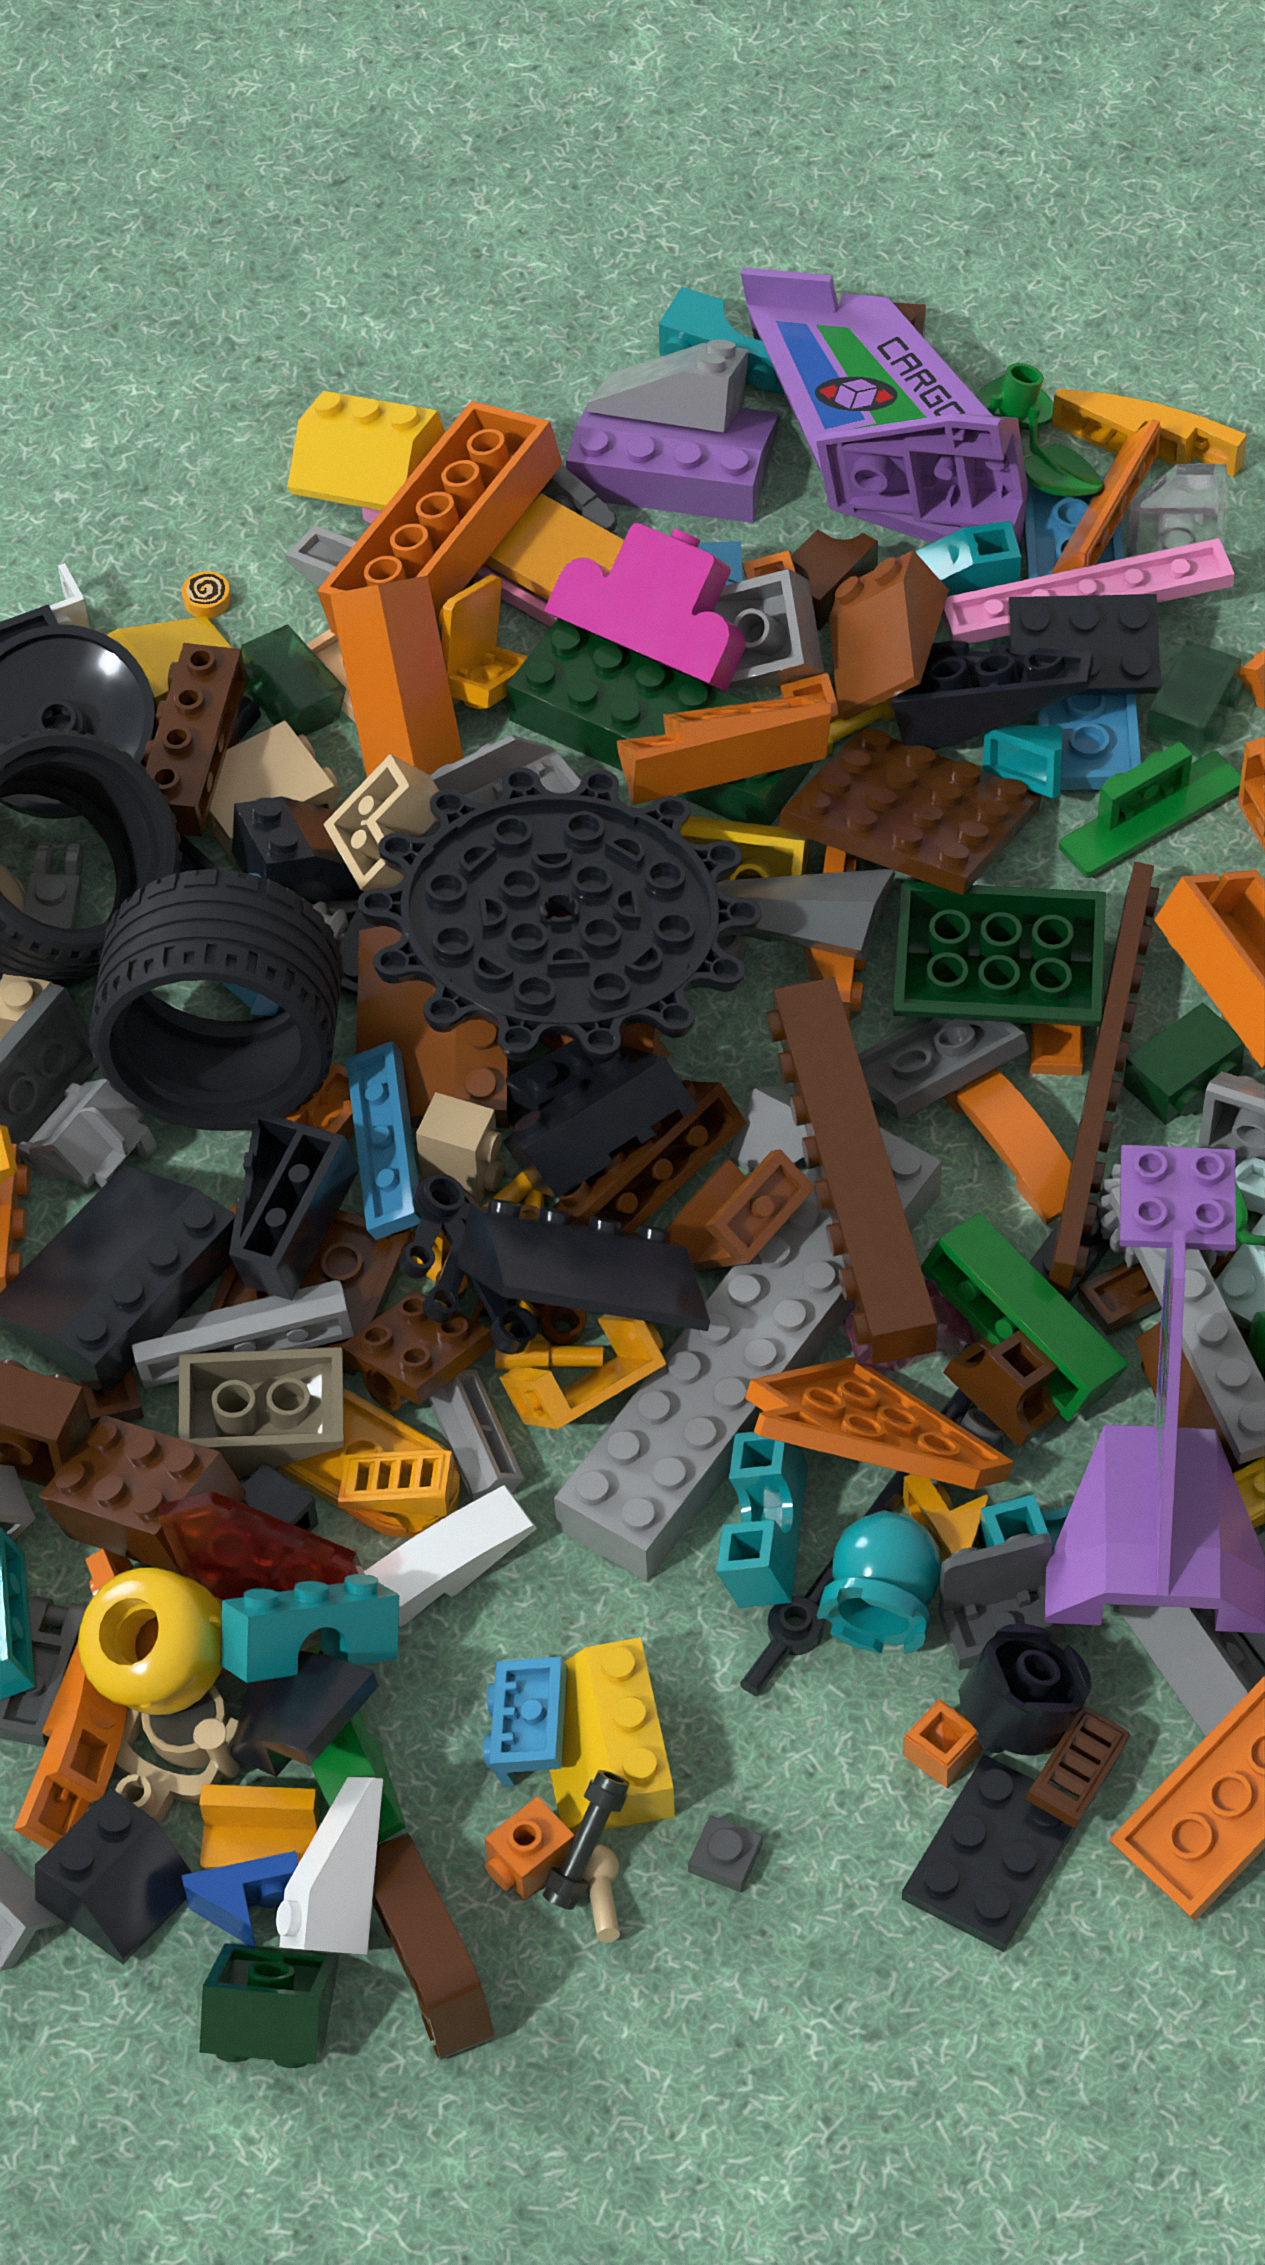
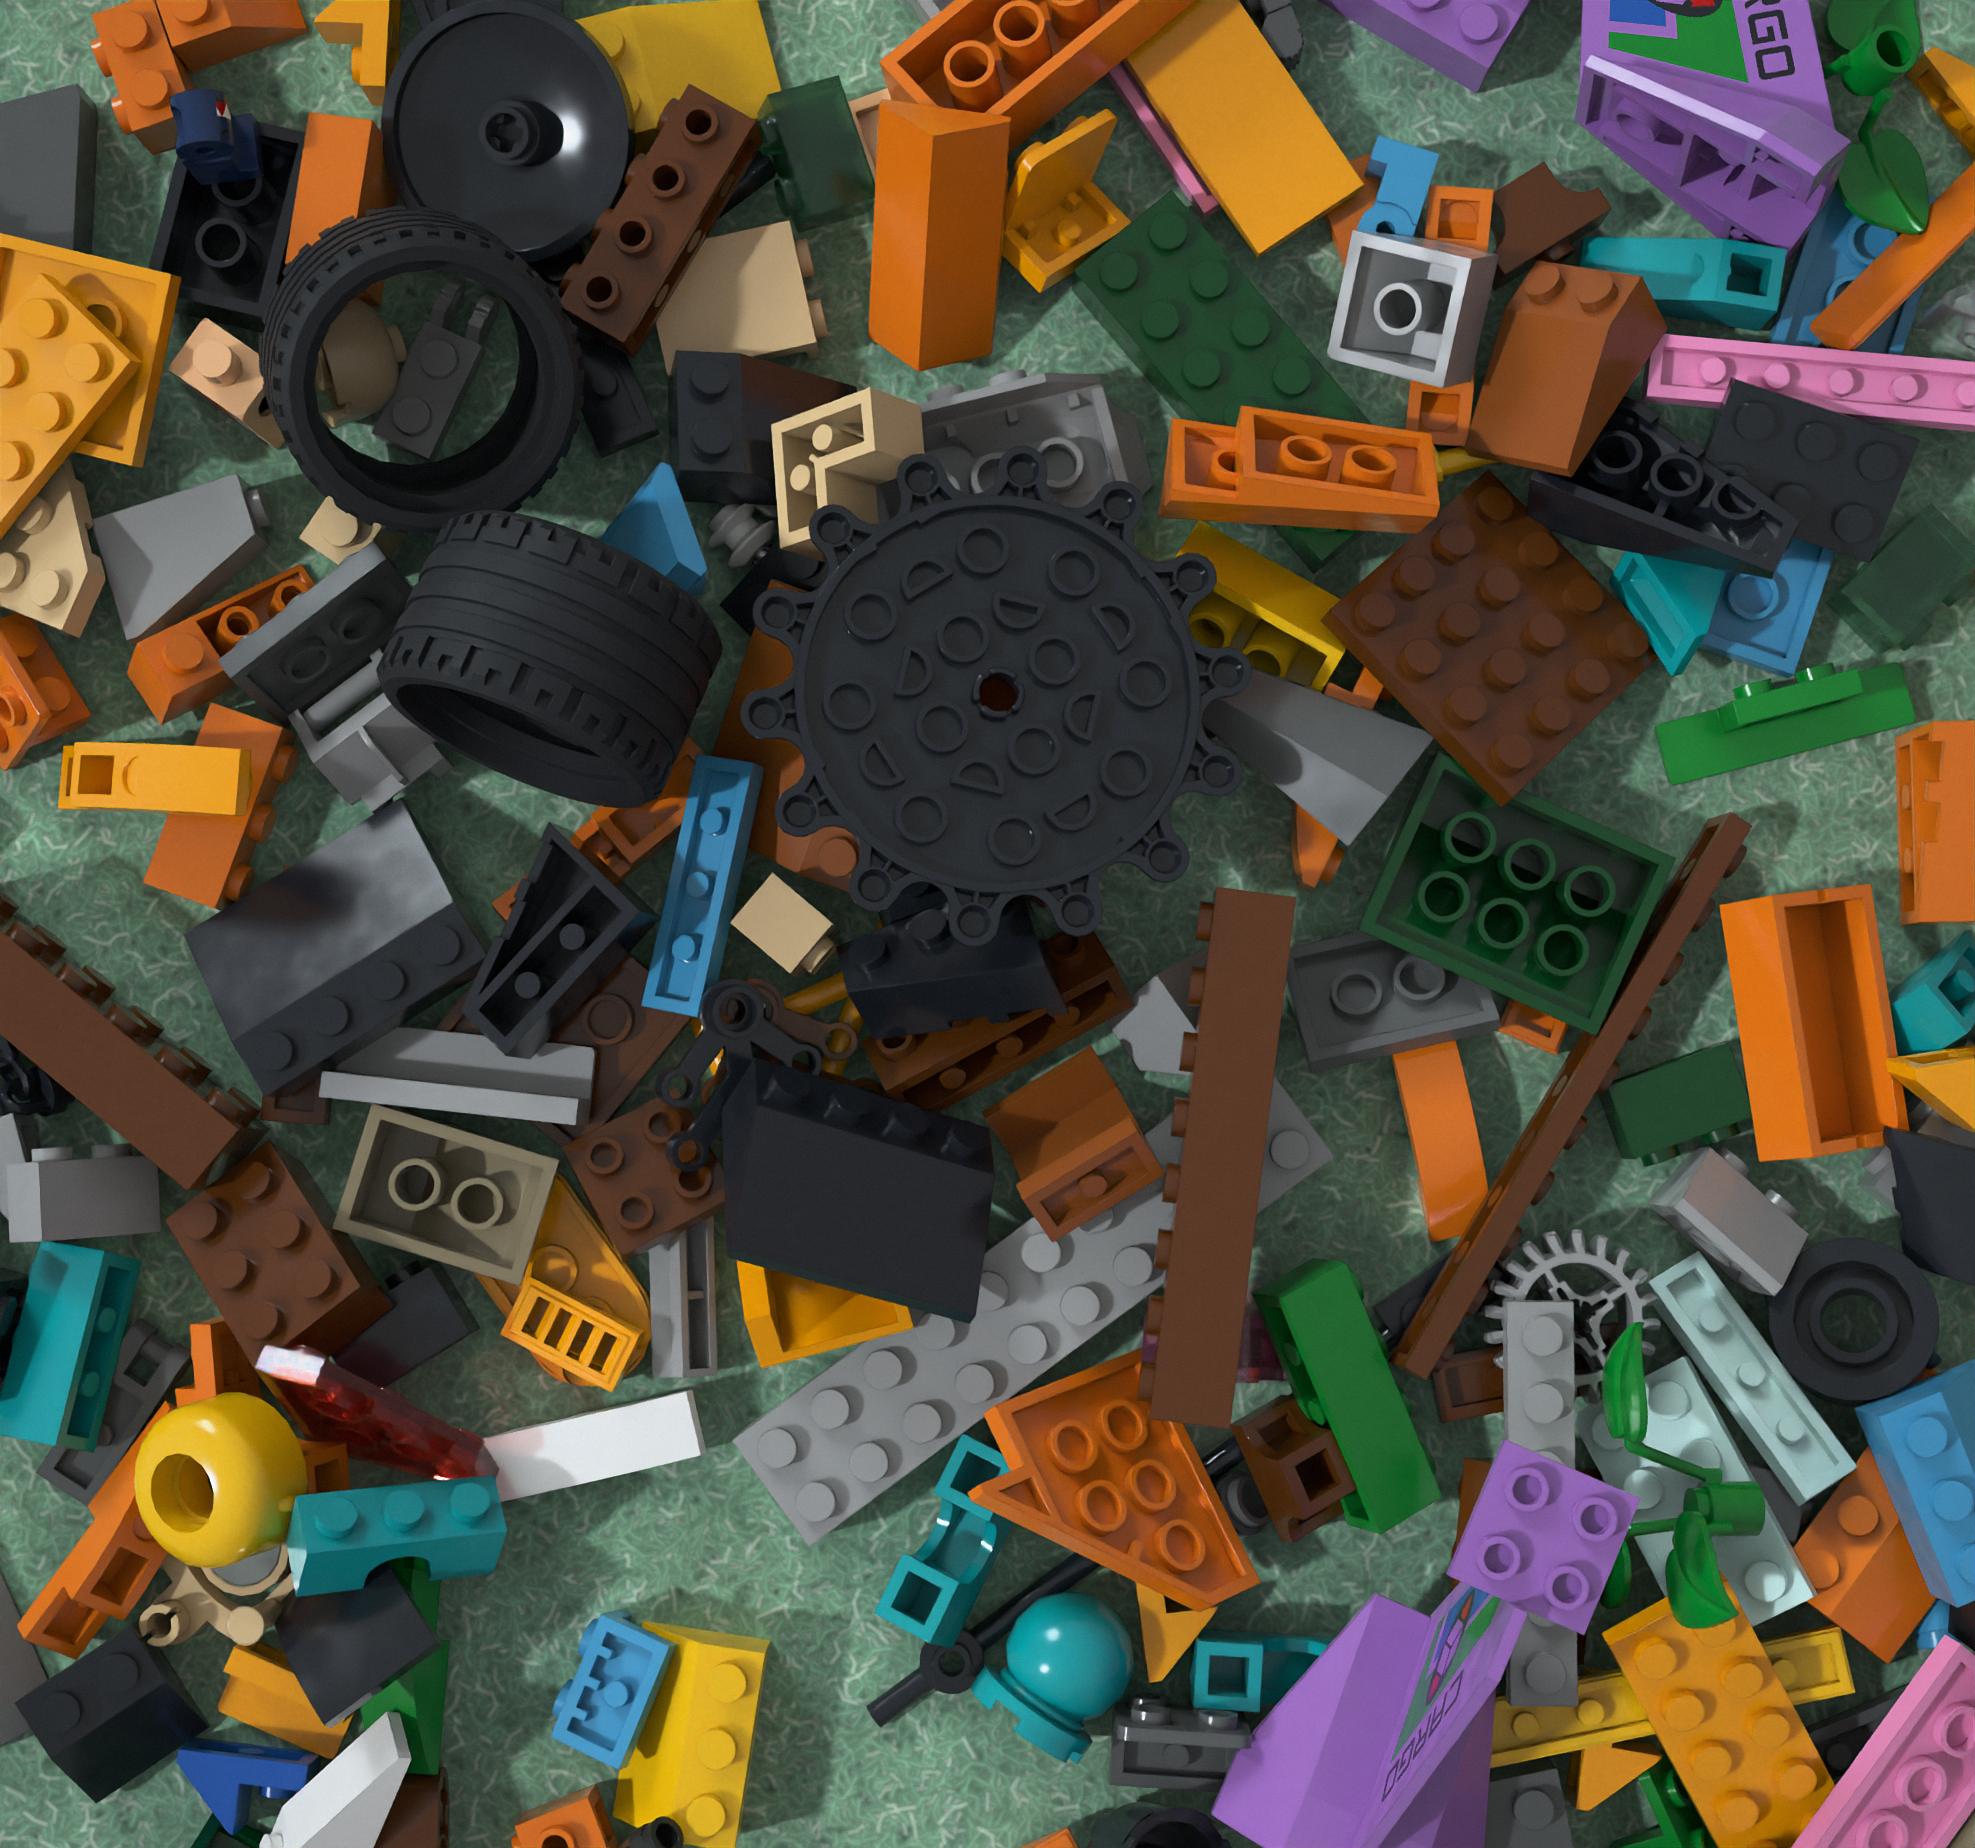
camera: 20 degrees right, 30 degrees up
(656, 604) = (1291, 234): dark pink brick -> none

